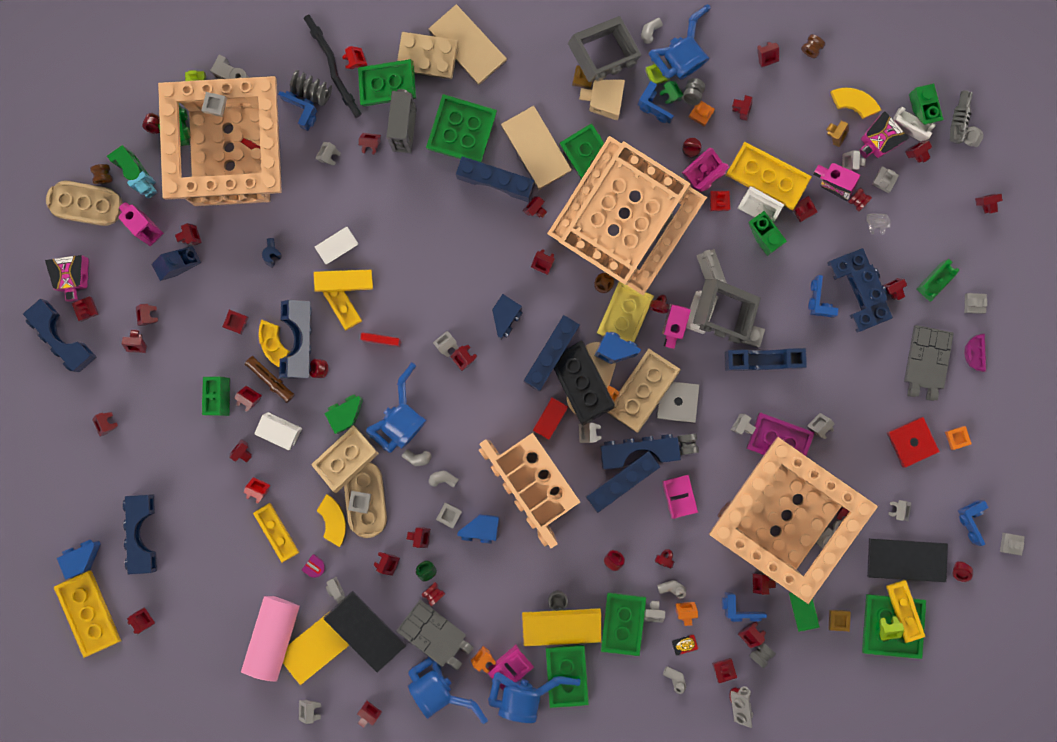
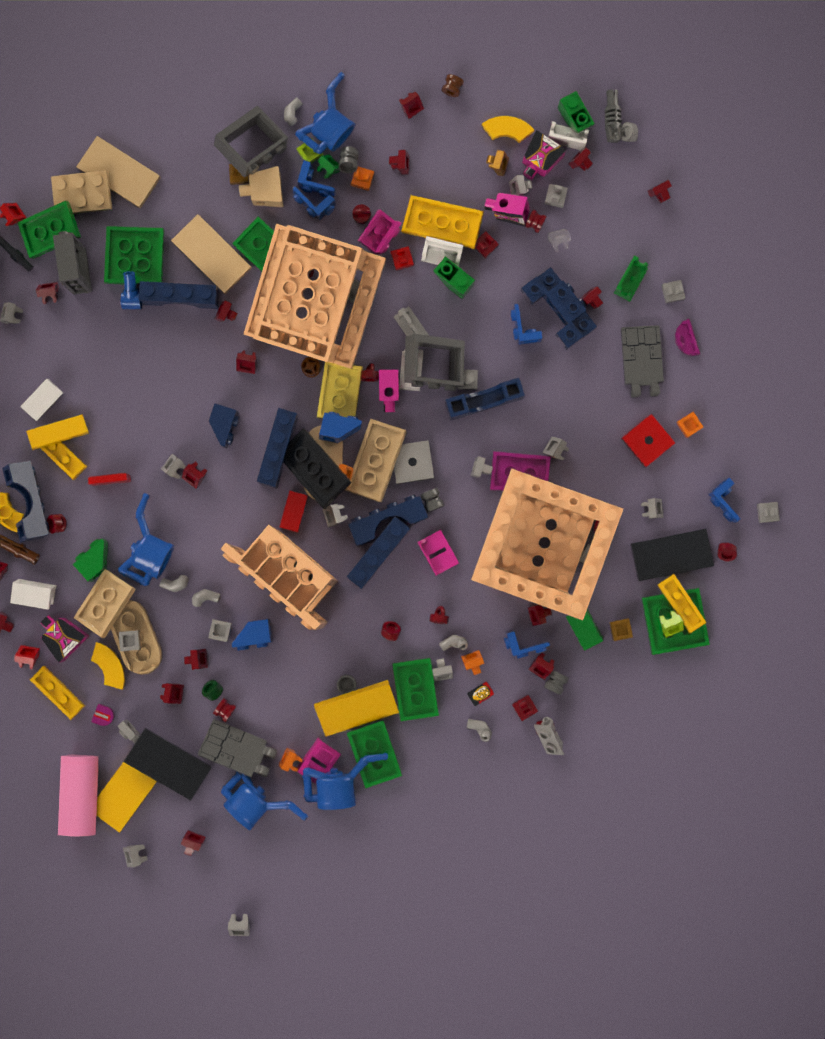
camera: 15 degrees left, 0 degrees up
(295, 480) = (62, 637): none -> torso
(448, 167) = (130, 294): none -> blue pin
(658, 132) = (326, 207): none -> blue bracket

